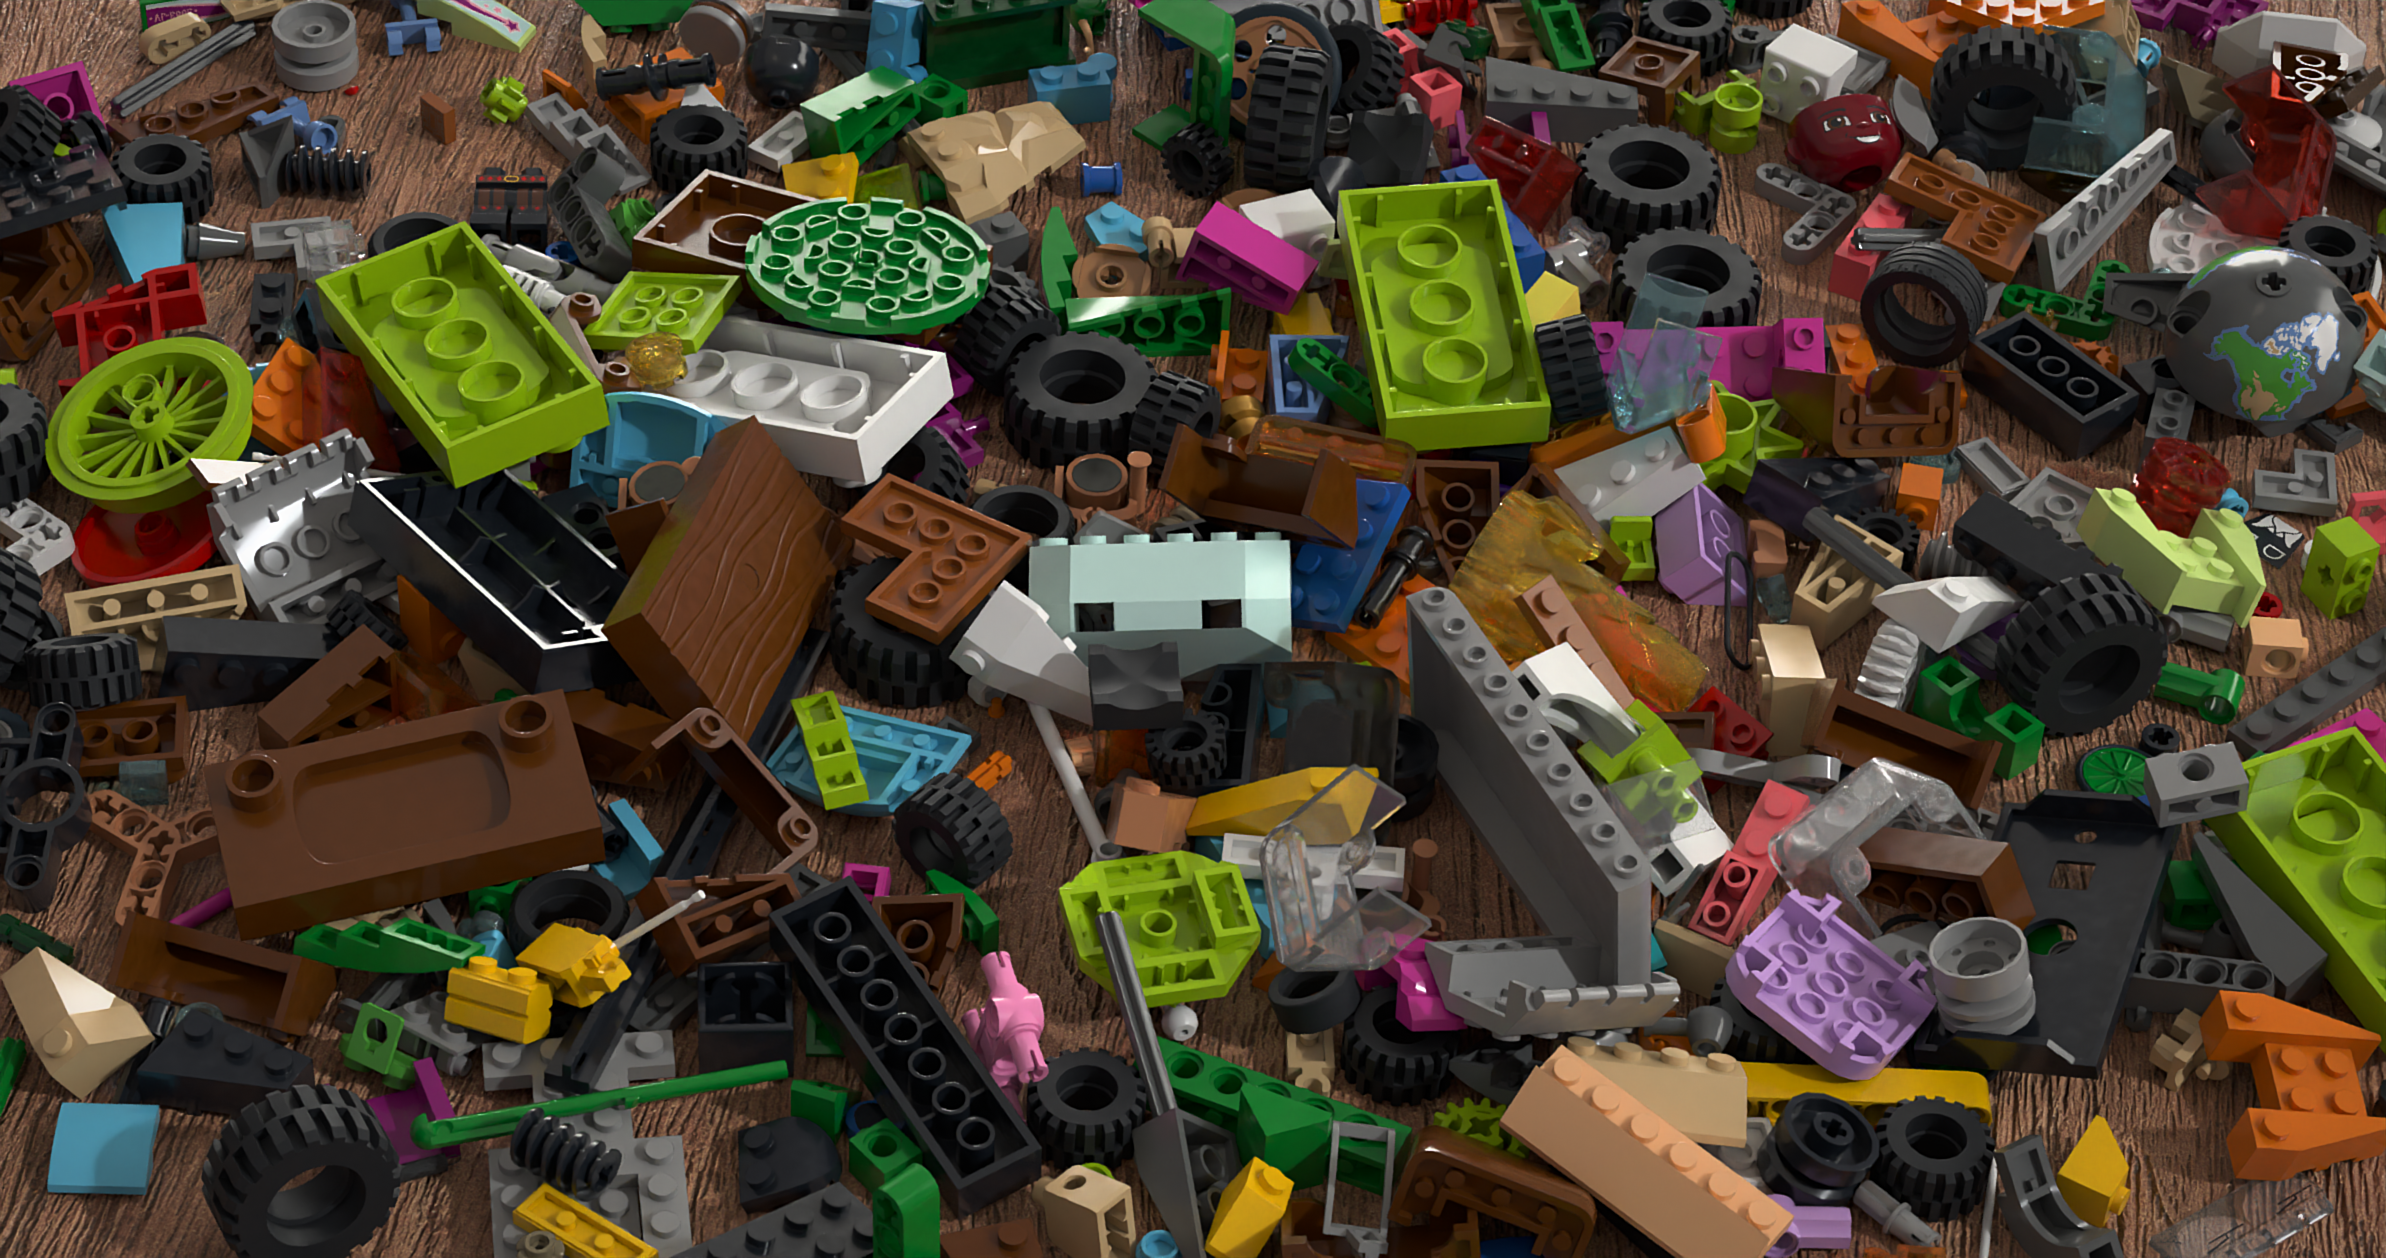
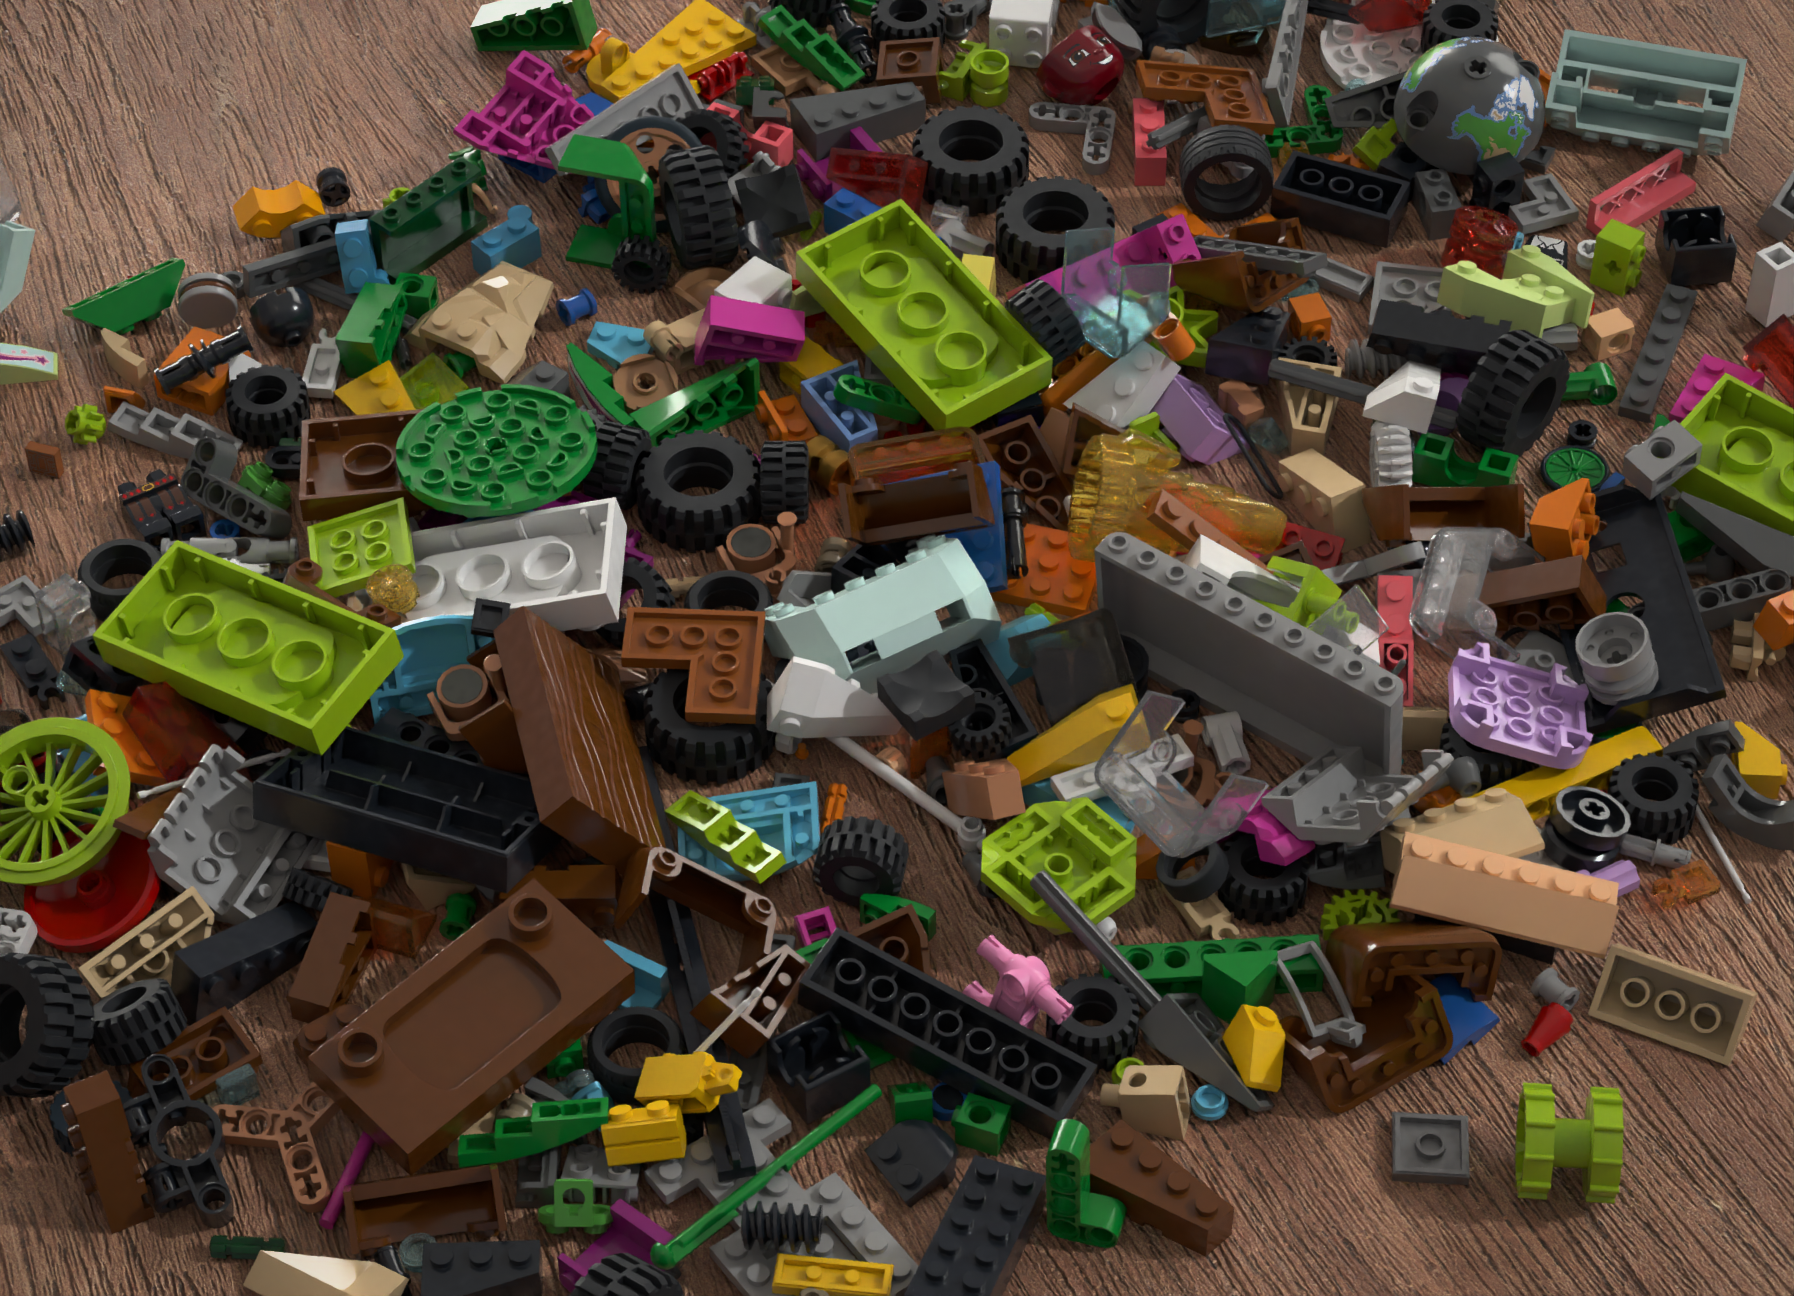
camera: 25 degrees left, 5 degrees up
(720, 415) = (488, 616): none -> black tile
(1458, 825) = (1191, 700): none -> black bush
(1475, 885) = (1225, 736): none -> white piece
(1888, 399) = (1267, 257): none -> dark grey plate
(2031, 808) = (1565, 521): none -> orange slope
(2053, 1119) = (1701, 744): none -> dark grey slope
(2134, 343) = (1376, 144): none -> lime plate
(2246, 437) = (1497, 183): none -> black brick

